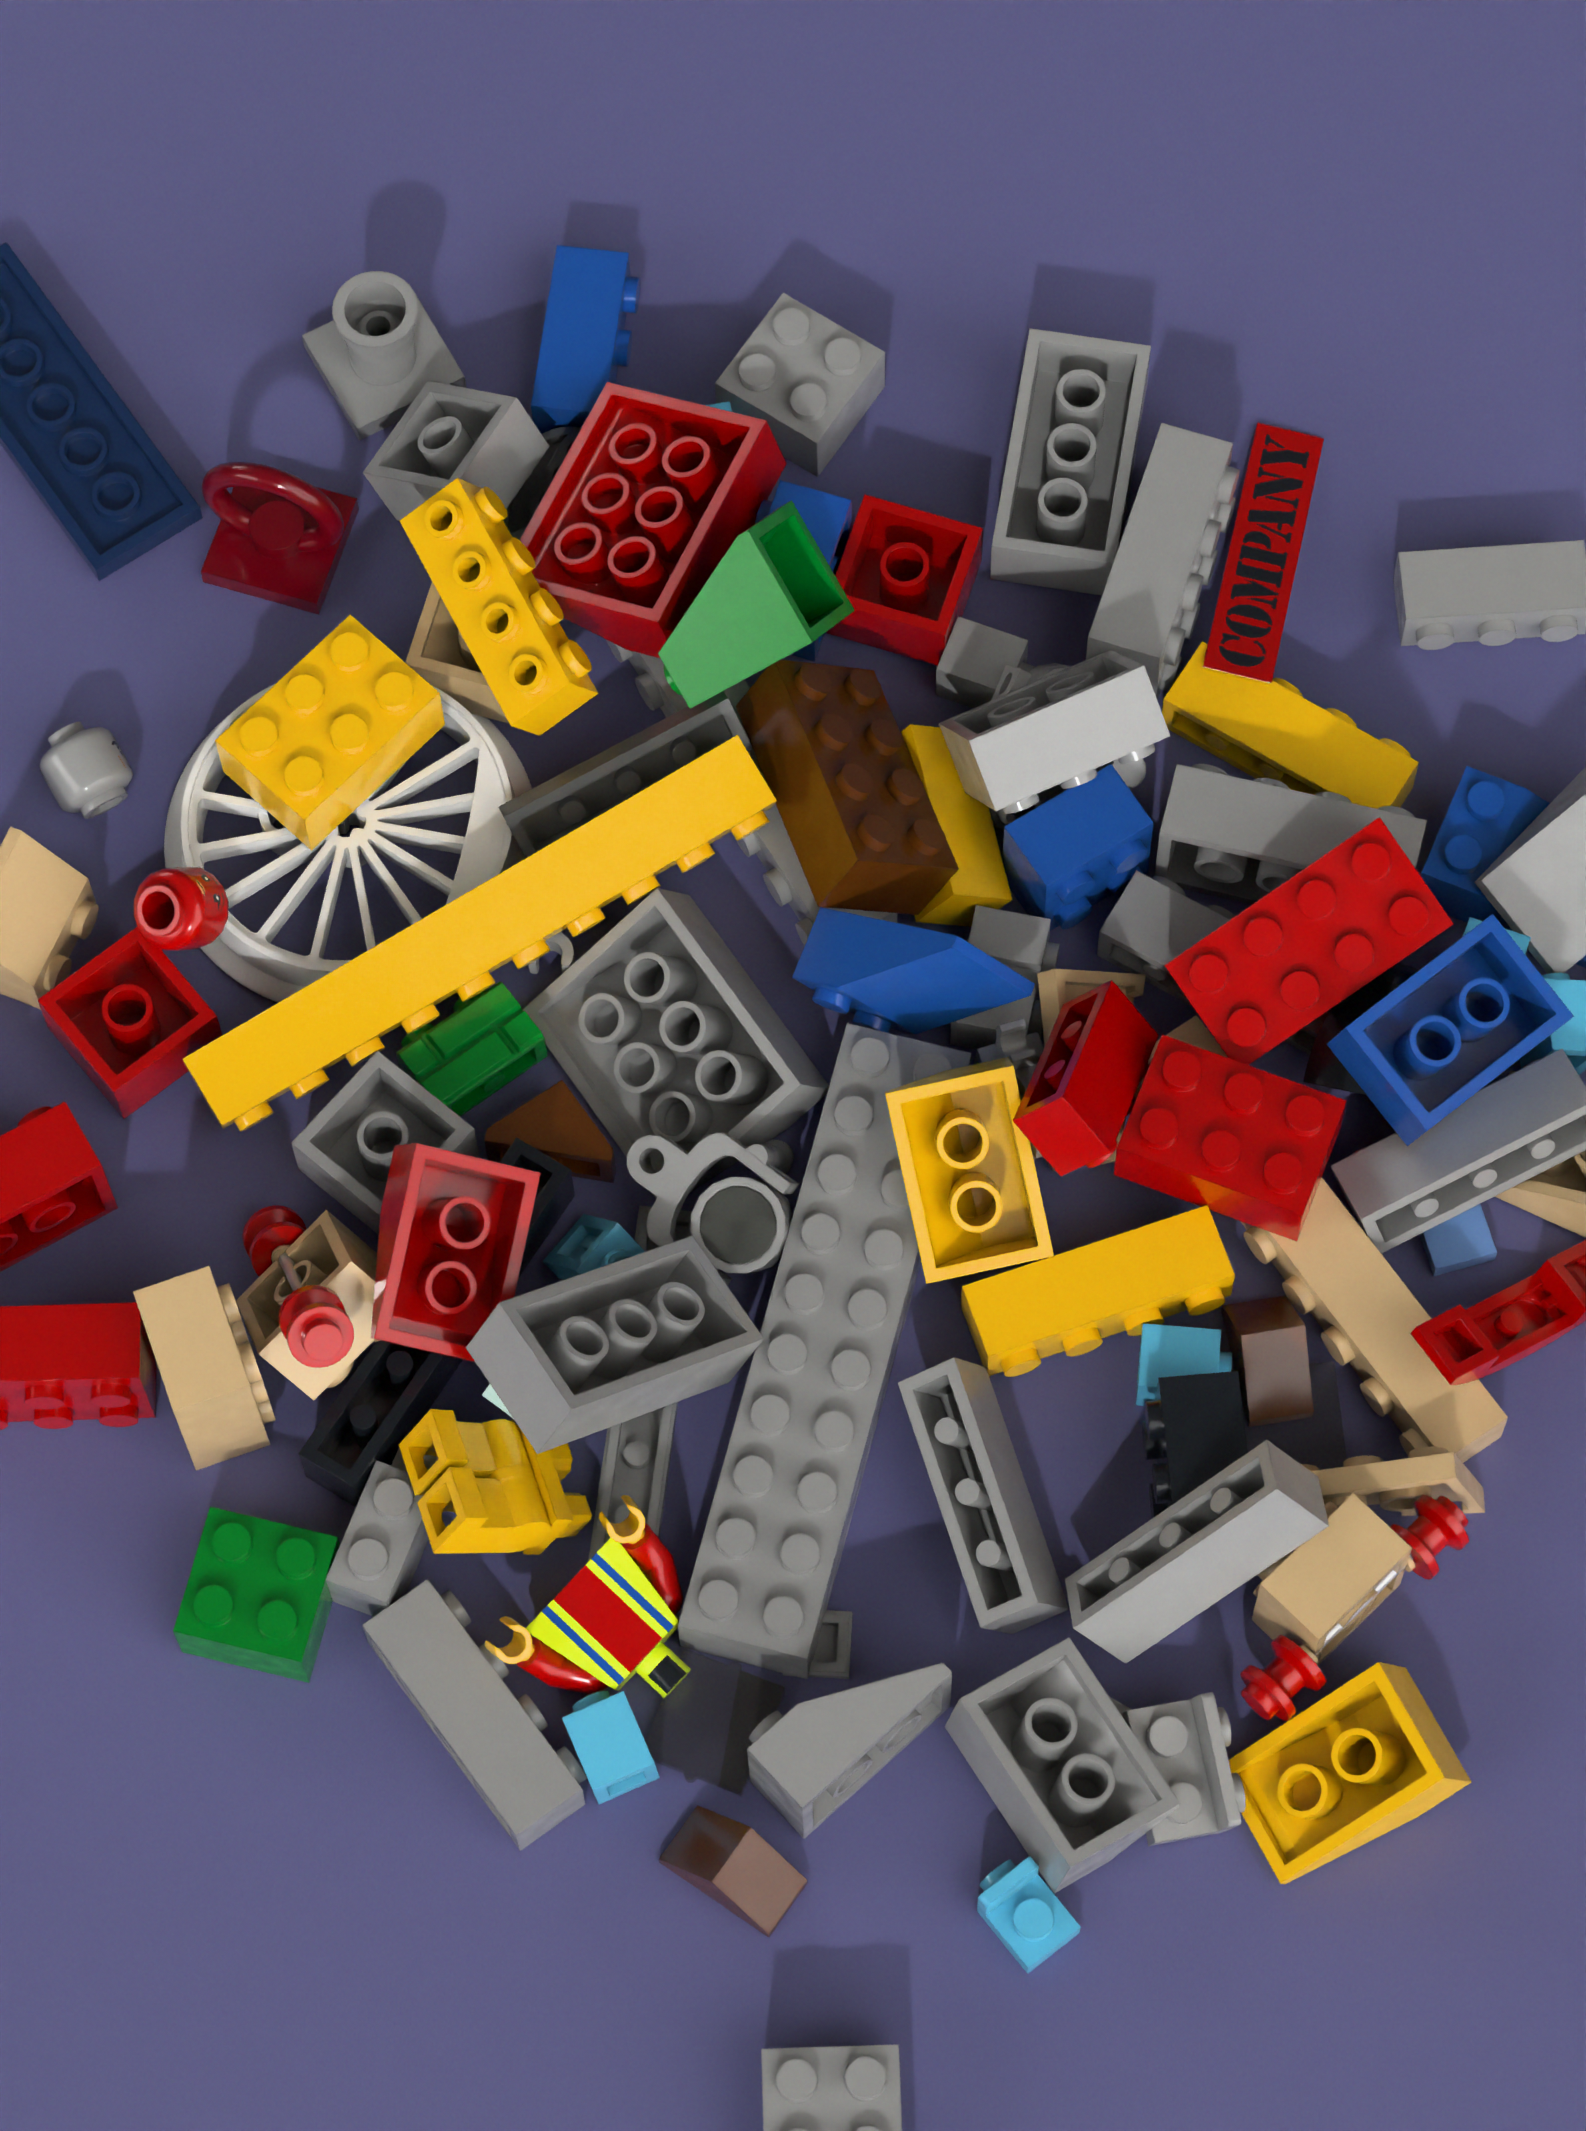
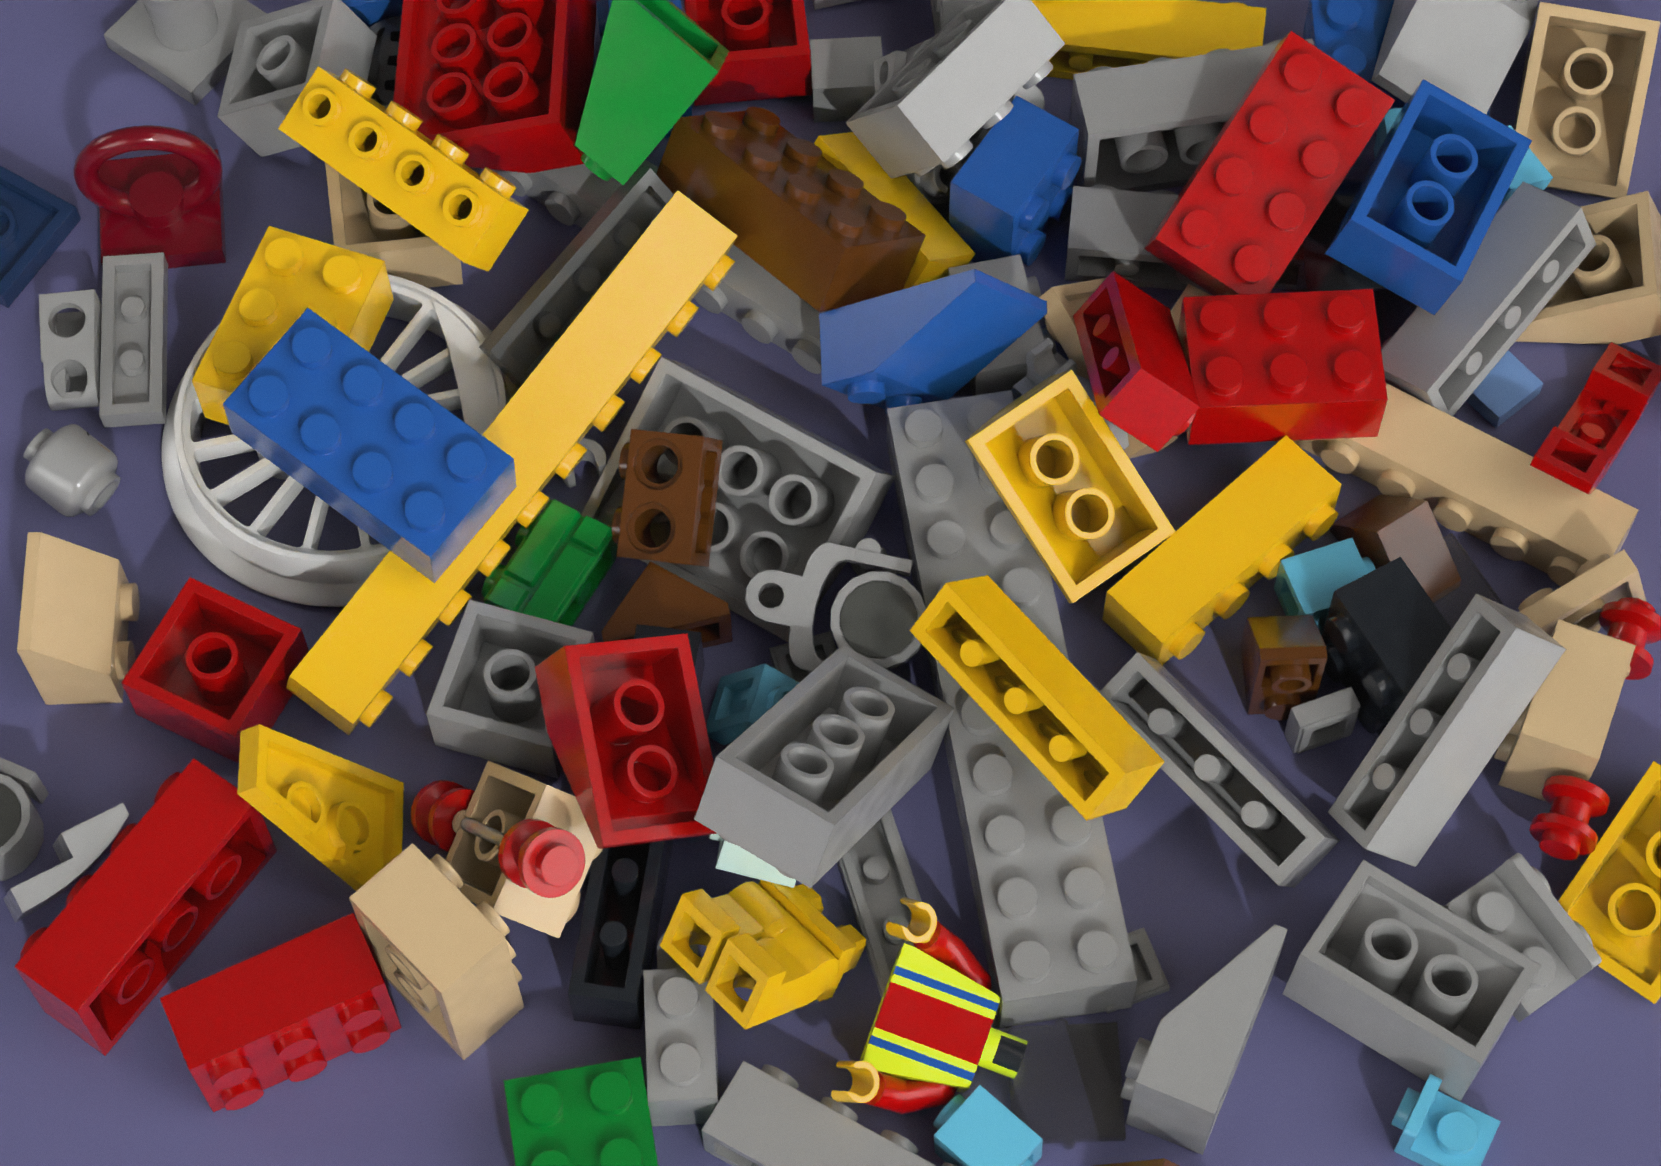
camera: 25 degrees left, 5 degrees down
(137, 650) = (71, 348): none -> light grey leg
(168, 1189) = (323, 802): none -> yellow wing
(180, 908) = (223, 545): red head -> none
(198, 661) = (134, 340): none -> light grey plate
(340, 875) = (371, 444): none -> blue brick
(617, 1037) = (685, 499): none -> reddish brown brick
(832, 1362) = (1036, 696): none -> yellow brick
(1096, 1422) = (1281, 663): none -> reddish brown slope
(1110, 1491) = (1322, 720): none -> light grey tile

